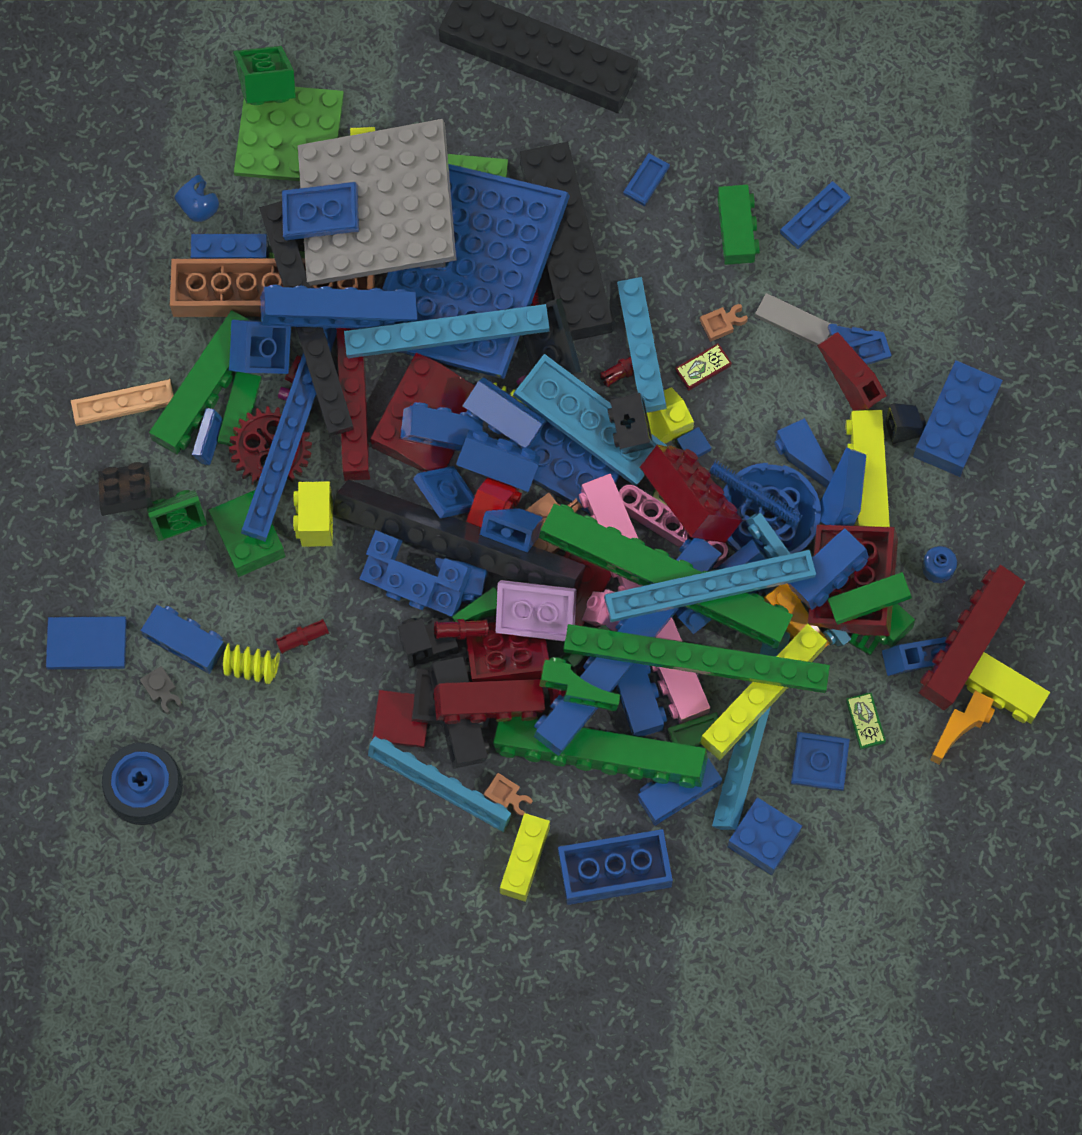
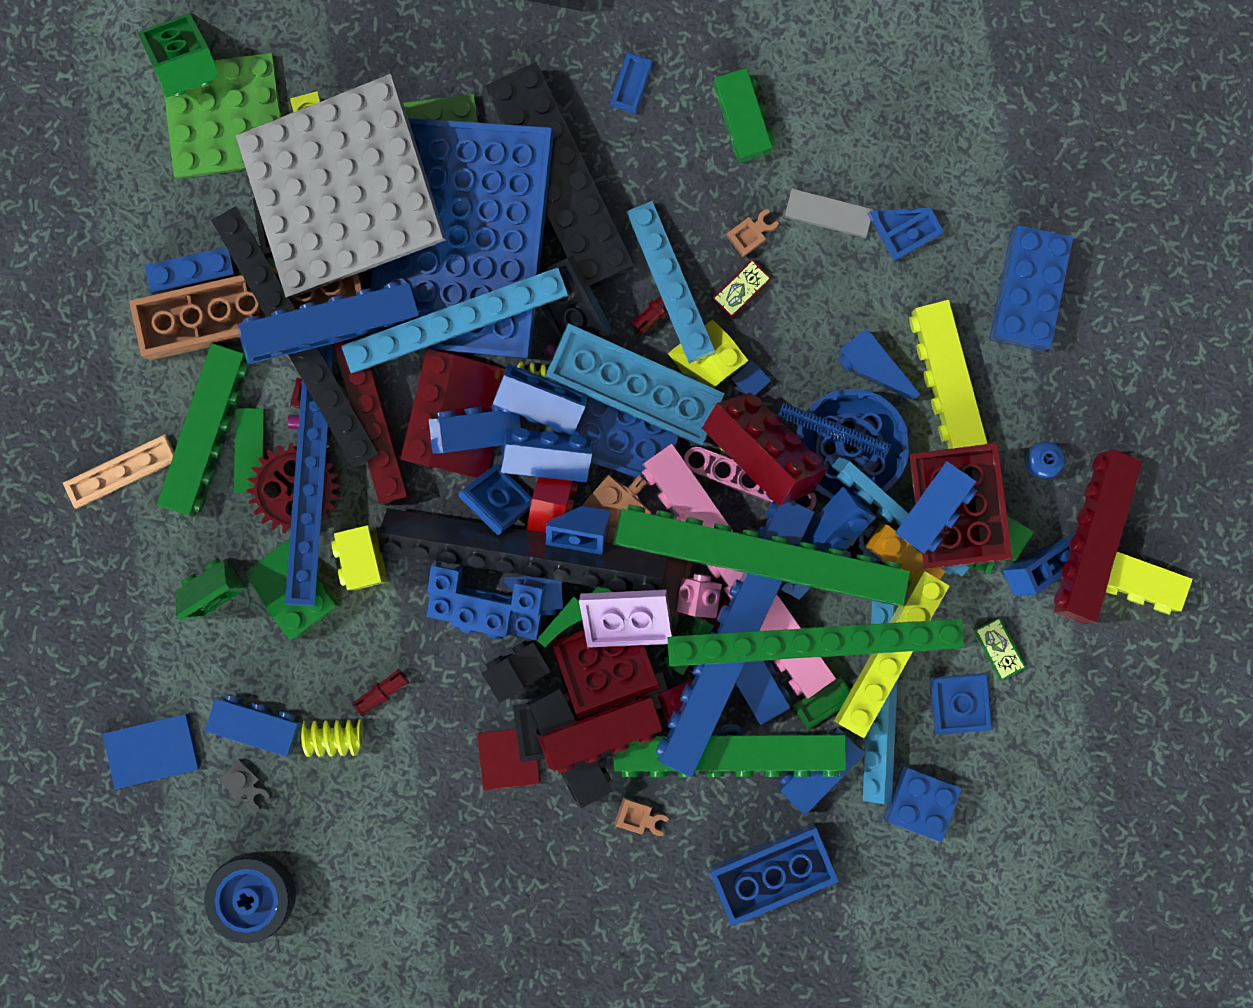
camera: 15 degrees left, 15 degrees up
(125, 488) = (146, 577): black plate -> none
(194, 202) = (141, 230): blue helmet -> none
(207, 437) = (222, 492): blue tile -> none
(259, 347) = (253, 387): blue brick -> none
(320, 211) = (280, 213): blue tile -> none
(441, 785) = (554, 818): dark azure plate -> none
(460, 629) = (549, 654): dark red pin -> none
(524, 857) = (675, 884): neon yellow brick -> none
(559, 676) = (671, 699): green slope -> none
(634, 409) = (686, 369): black brick -> none
(709, 586) = (815, 565): dark azure plate -> none
(815, 215) = (826, 84): blue plate -> none
(844, 493) = (928, 407): blue slope -> none
(852, 373) = (907, 265): dark red slope -> none
(869, 598) = (988, 531): green tile -> none
(904, 422) = (974, 307): black slope -> none
(976, 713) = (1115, 615): light orange slope -> none

